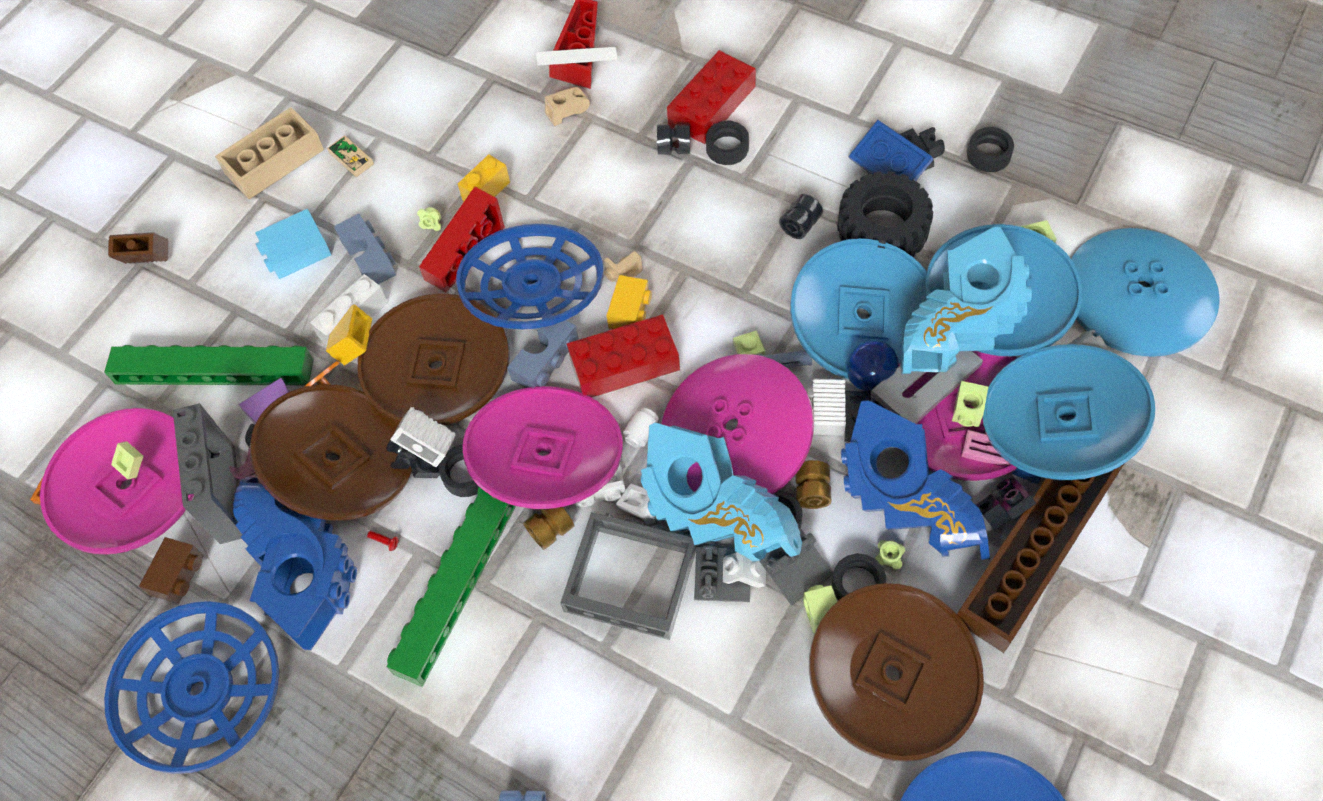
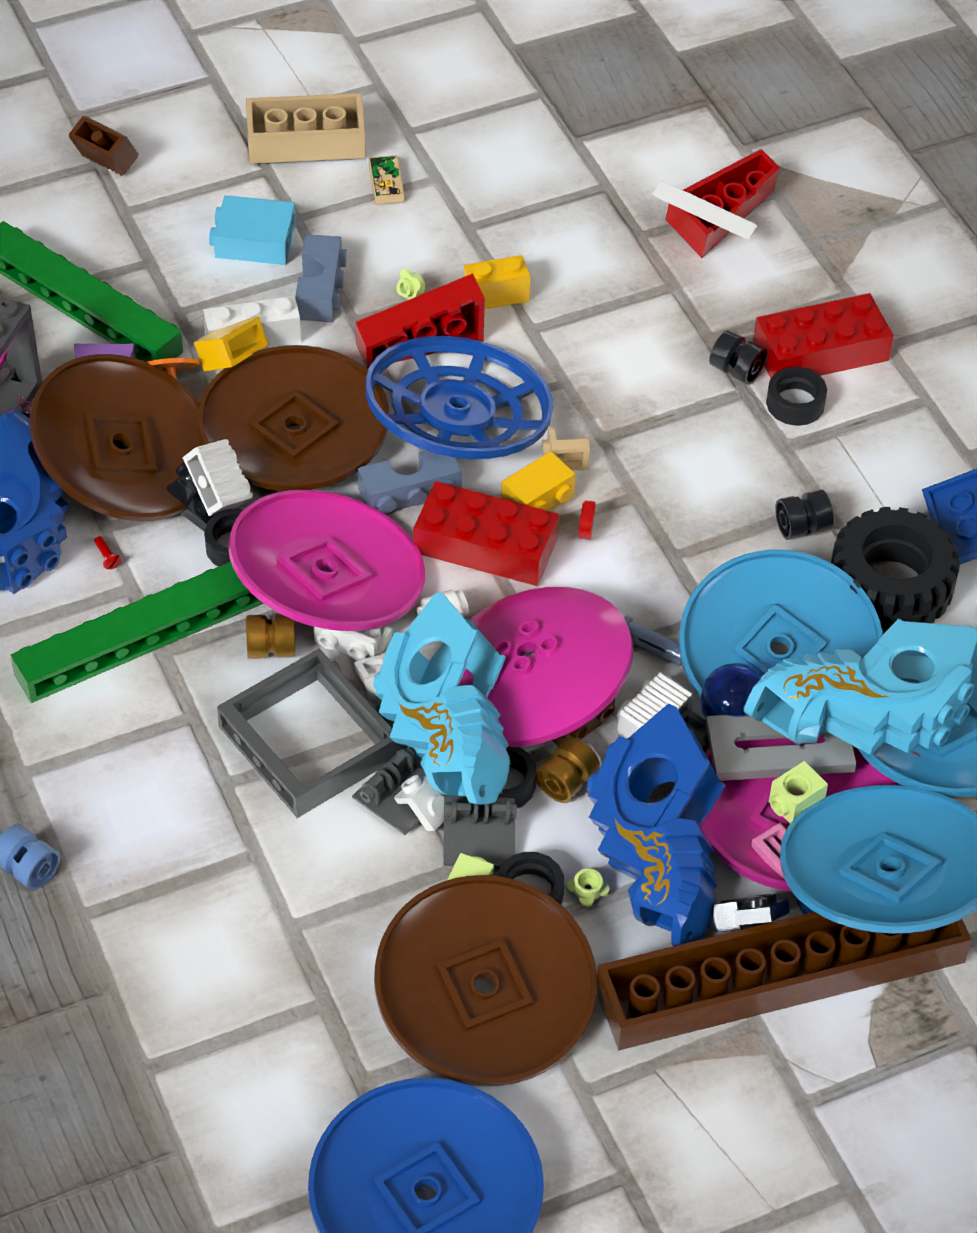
camera: 30 degrees right, 10 degrees down
(565, 103) = (656, 255): tan leg -> none
(676, 306) = (587, 520): none -> red tile
(748, 344) = (632, 604): yellowish green plate -> none

